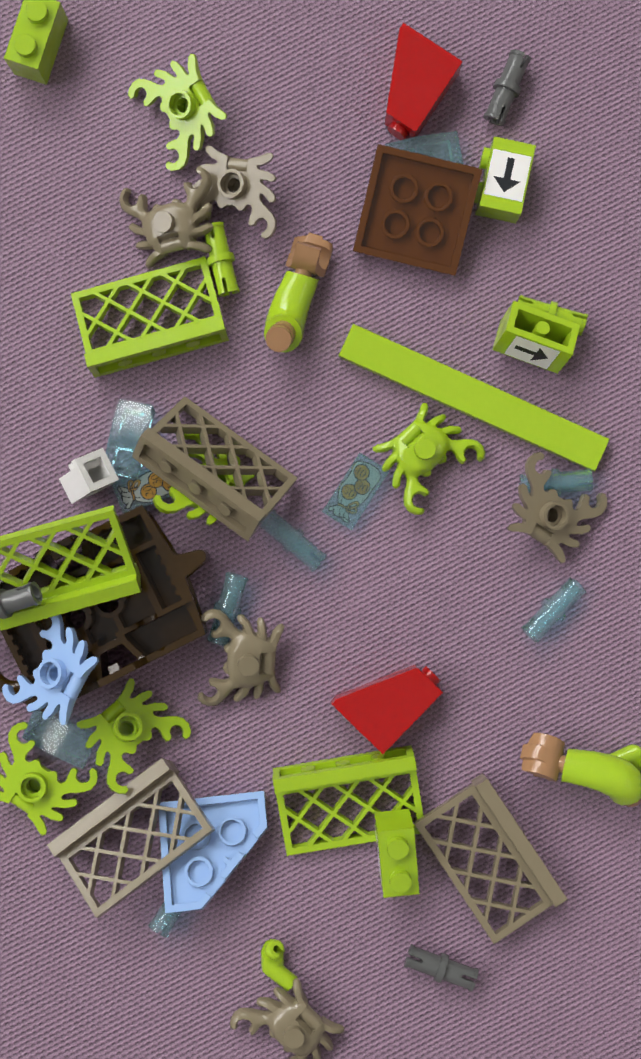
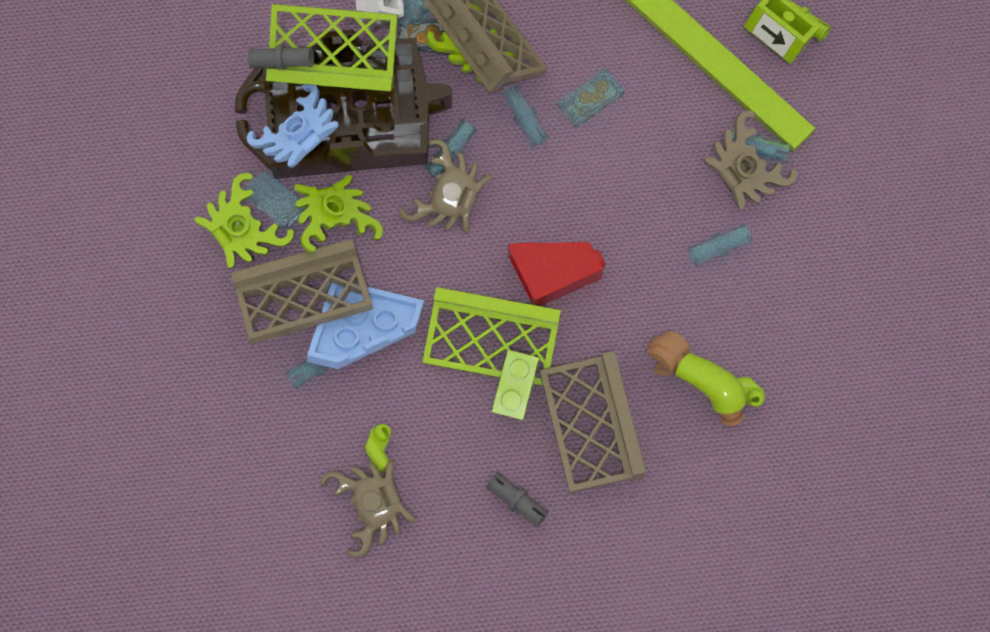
camera: 20 degrees right, 15 degrees down
(420, 450) = (656, 82): lime animal -> none

